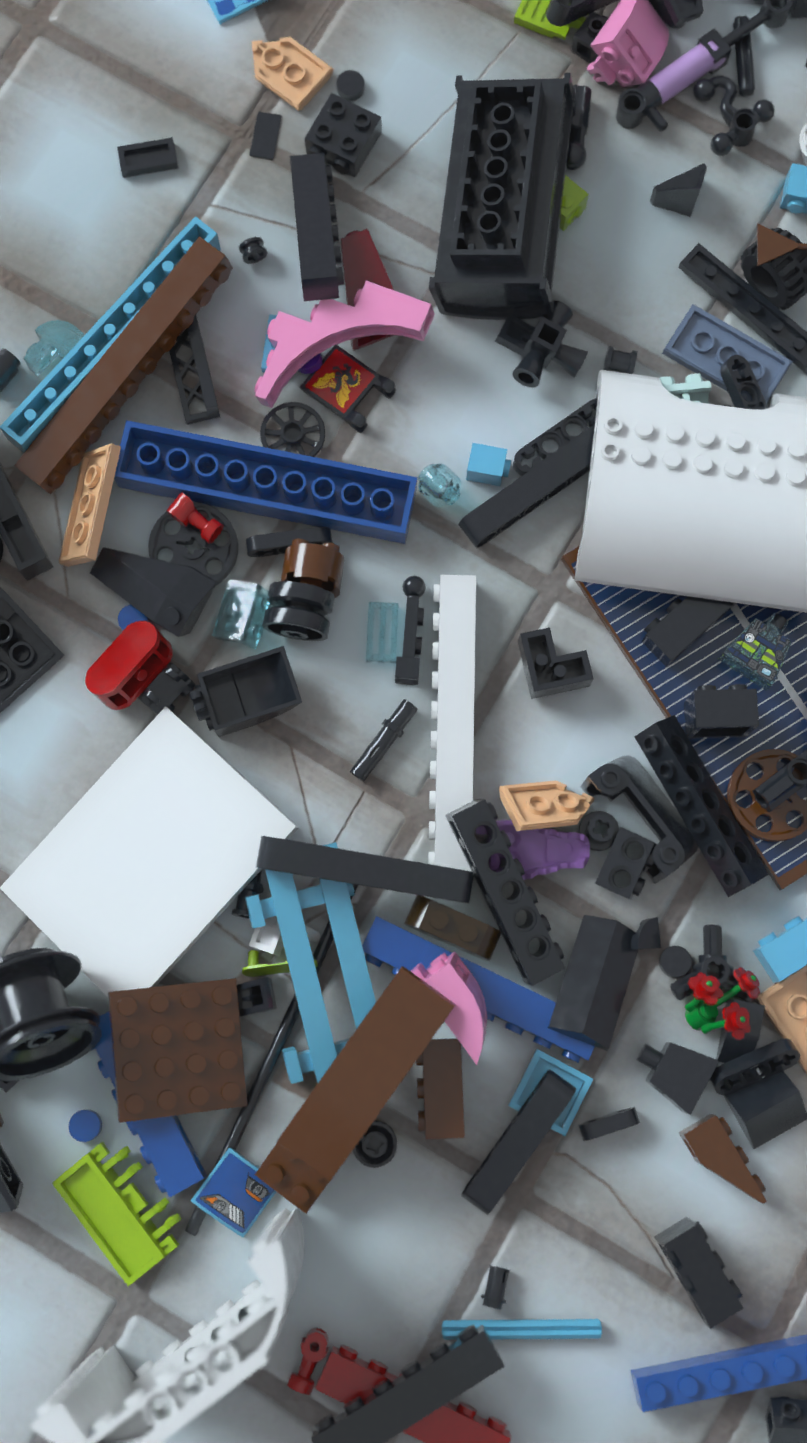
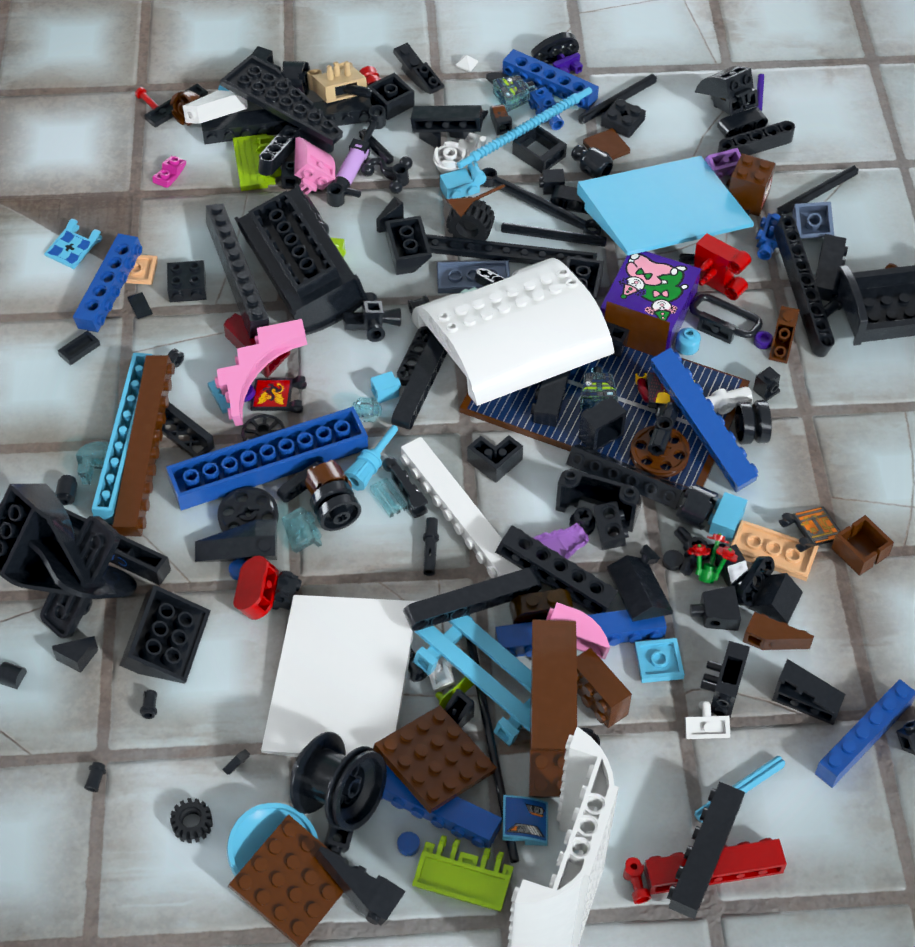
camera: 35 degrees left, 25 degrees down
(89, 505) = (173, 523): light nougat tile -> none
(185, 513) = (232, 495): red leg -> none
(246, 692) = (335, 563): black piece -> none
(256, 63) = (107, 283): none -> blue brick
(315, 228) = (206, 323): black brick -> none
(350, 85) = (171, 256): black tile -> none
(388, 567) = (368, 462): none -> medium azure piece
(411, 159) = (236, 269): none -> black brick
(495, 1287) = (708, 775): black pin -> none
(518, 1141) = (662, 690): black beam -> none
(542, 1222) = (707, 725): none -> white plate
(543, 805) = (544, 522): light nougat tile -> none
(609, 1123) = (702, 655): black beam -> none
(609, 1186) = (727, 684): none -> black piece
(669, 253) = (407, 244): none -> black slope
(758, 914) = (697, 506): none -> black brick

